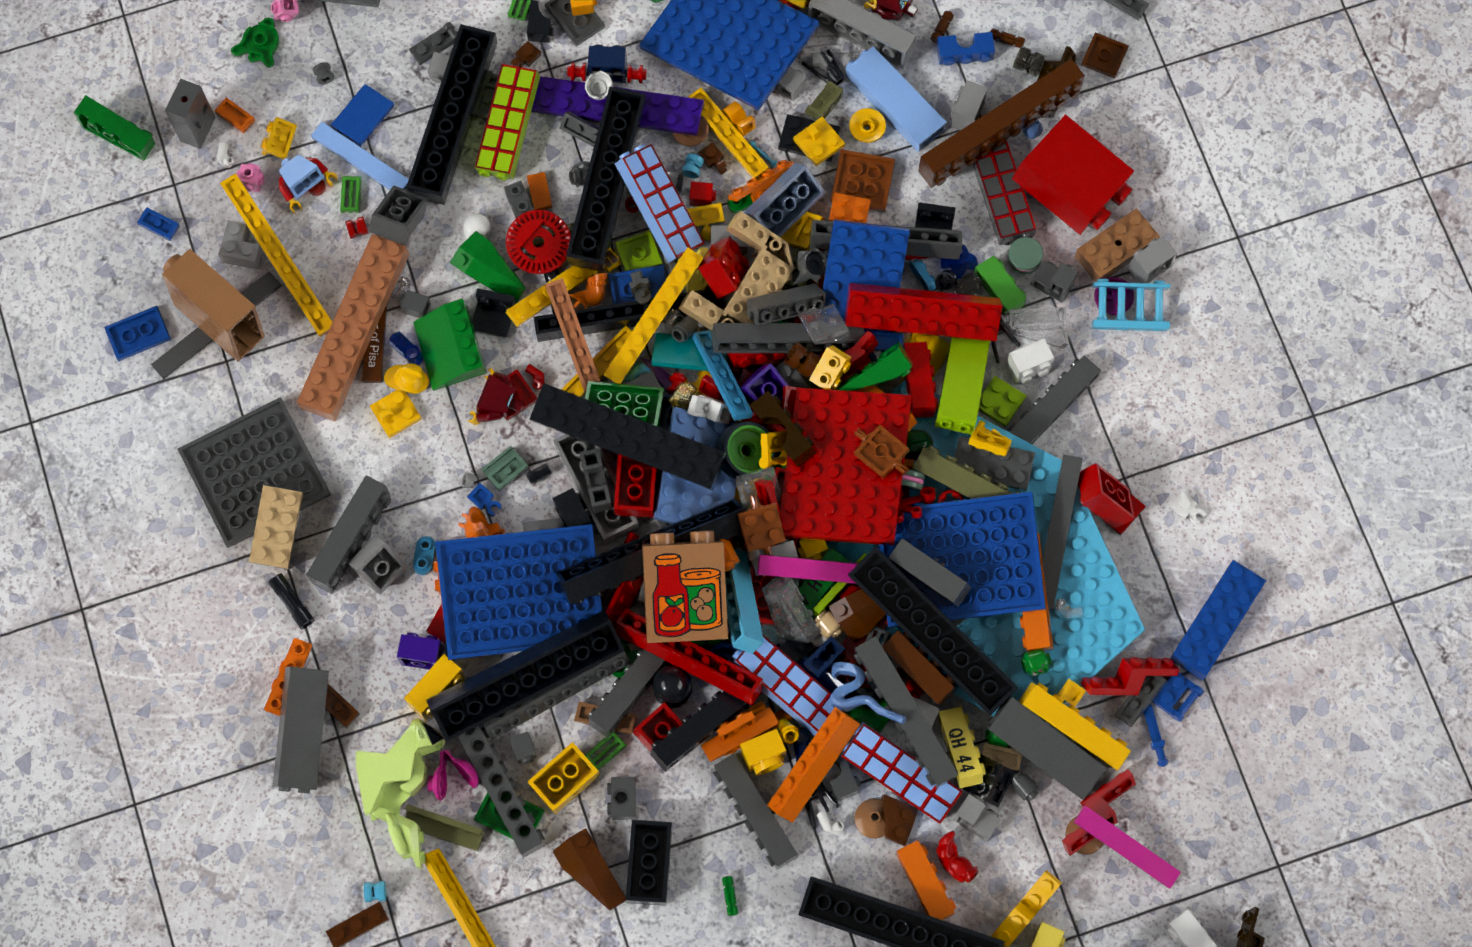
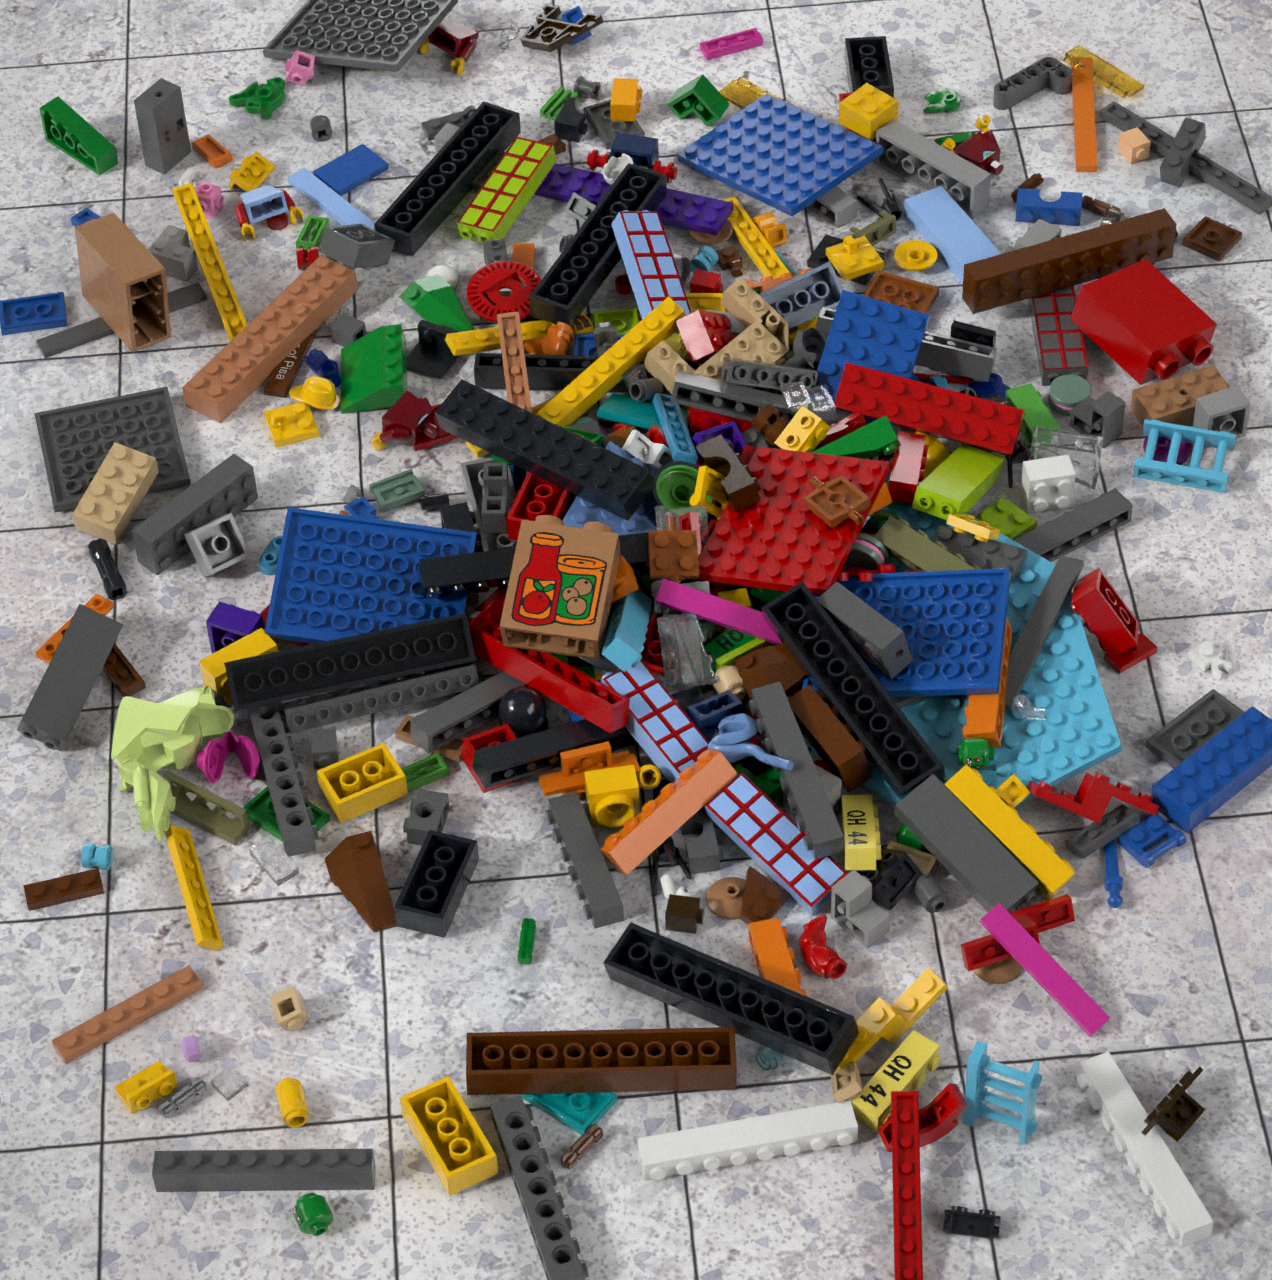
camera: 15 degrees right, 25 degrees down
(843, 846) = (683, 914): none -> dark brown brick
(1192, 584) = (1193, 728): none -> dark grey plate

